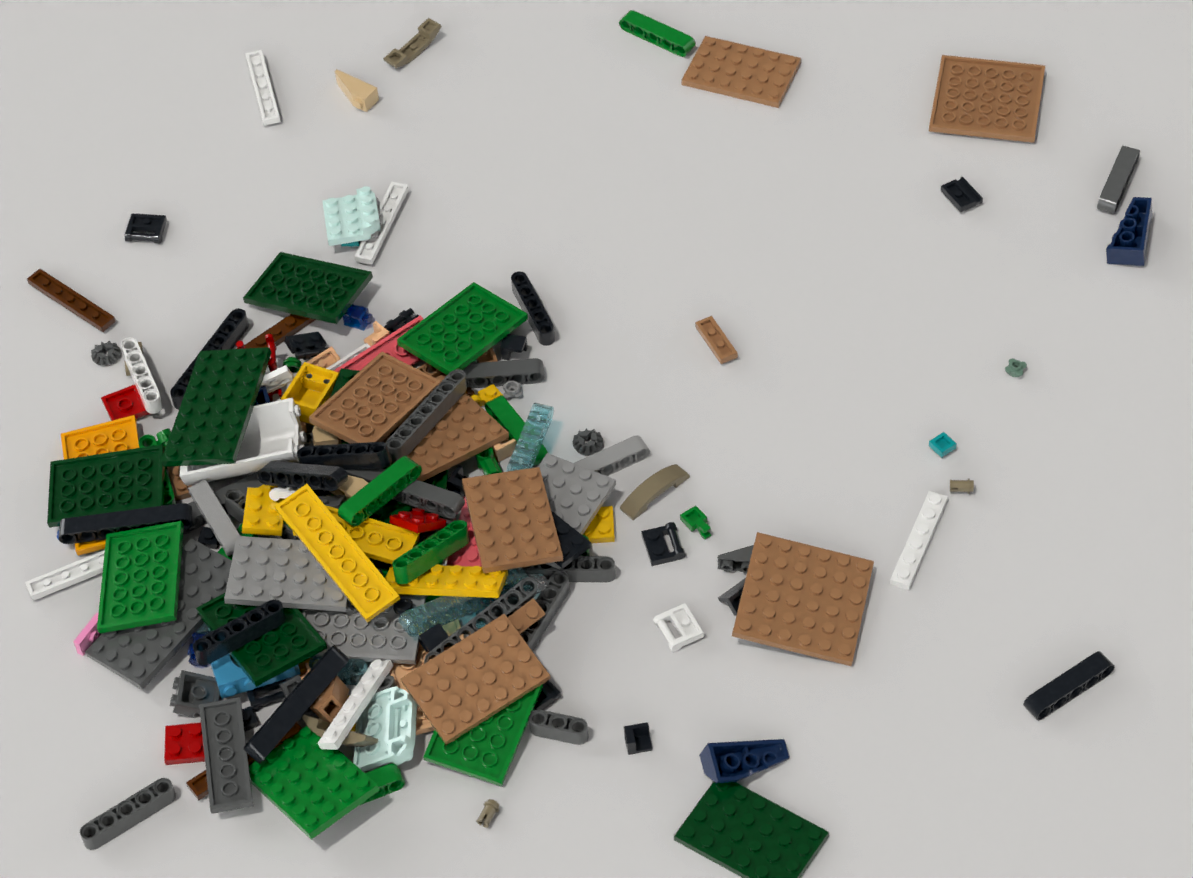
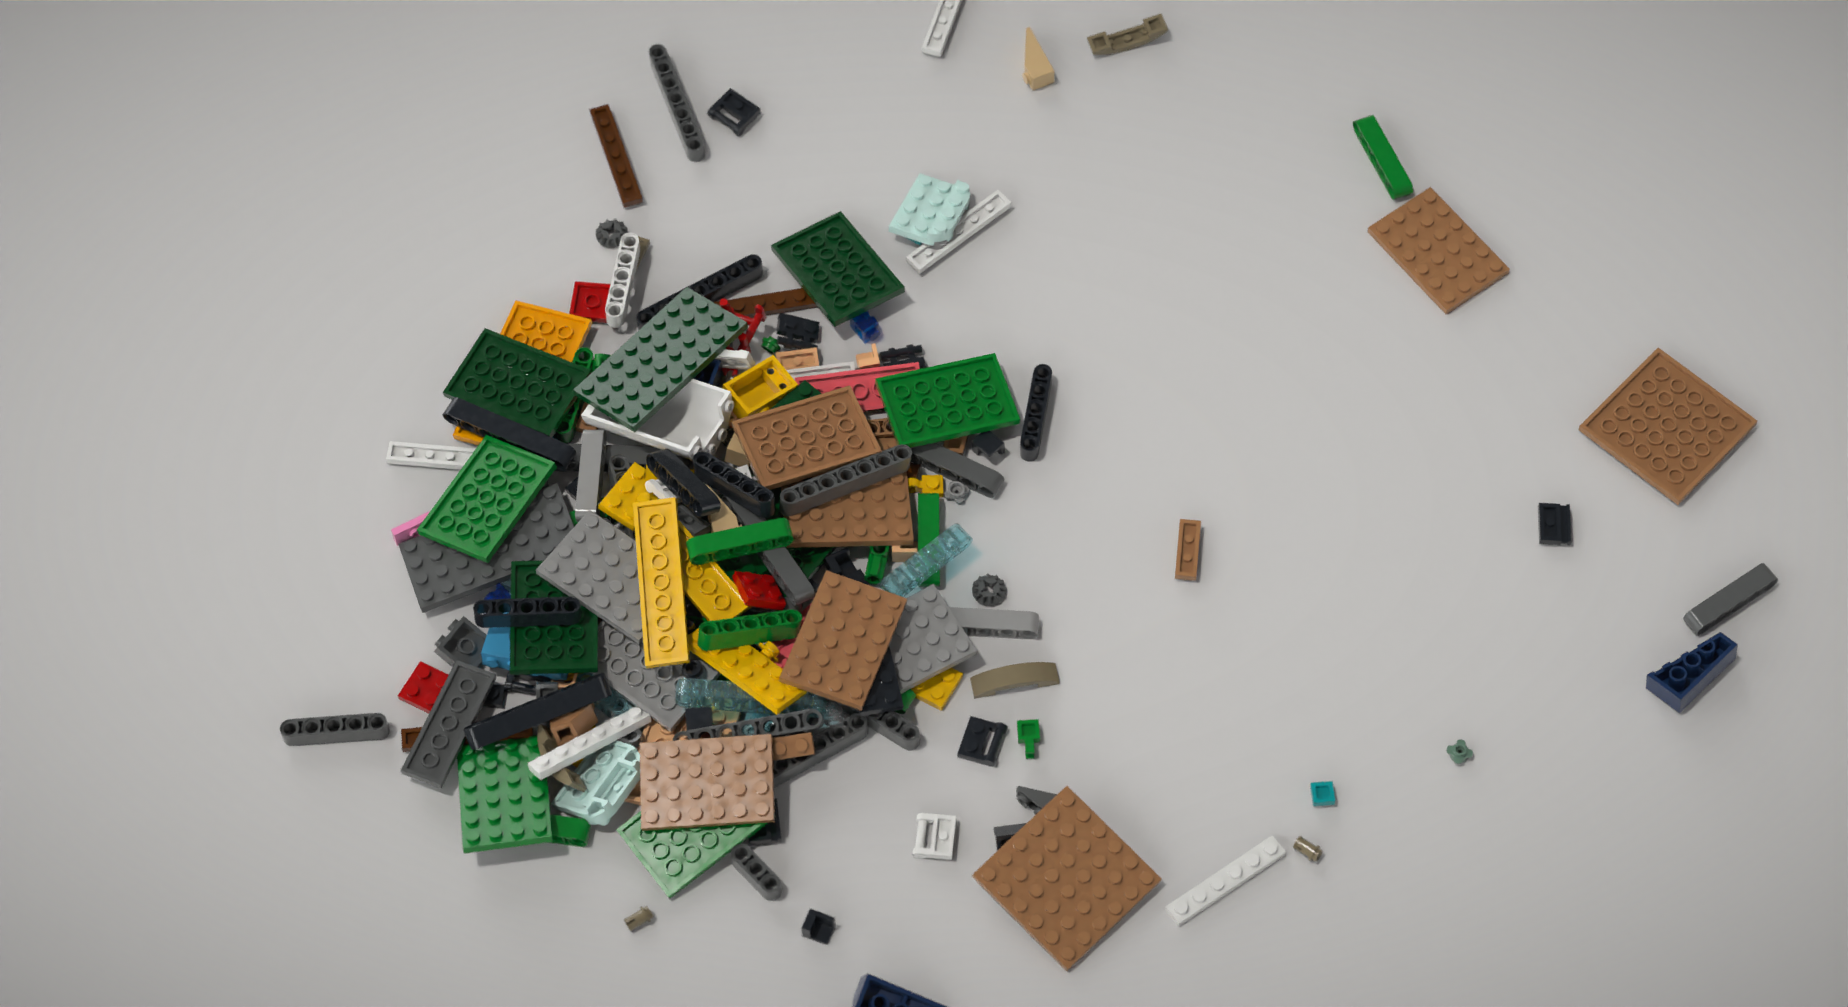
camera: 30 degrees right, 10 degrees up
(95, 243) = (680, 111): none -> dark grey beam
(456, 559) = (770, 651): none -> yellow plate

